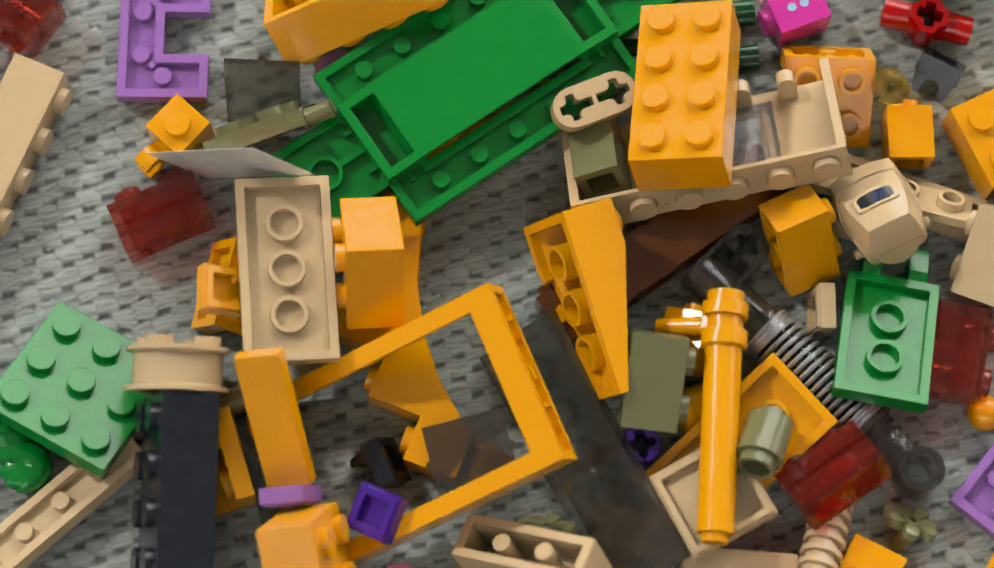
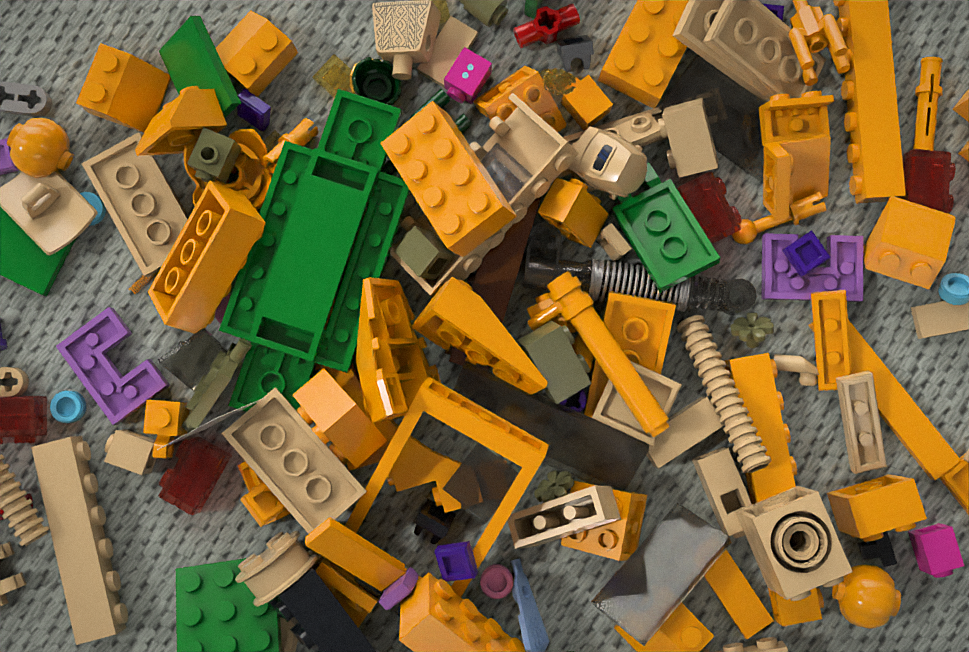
camera: 35 degrees left, 10 degrees up
(81, 44) = (68, 406): none -> medium azure tile
(113, 139) = (130, 451): none -> tan brick
(480, 232) = (388, 351): none -> light orange wedge
(589, 91) = (389, 218): tan beam -> none
(764, 441) = (645, 350): olive brick -> none
(832, 474) = (695, 339): clear red brick -> none

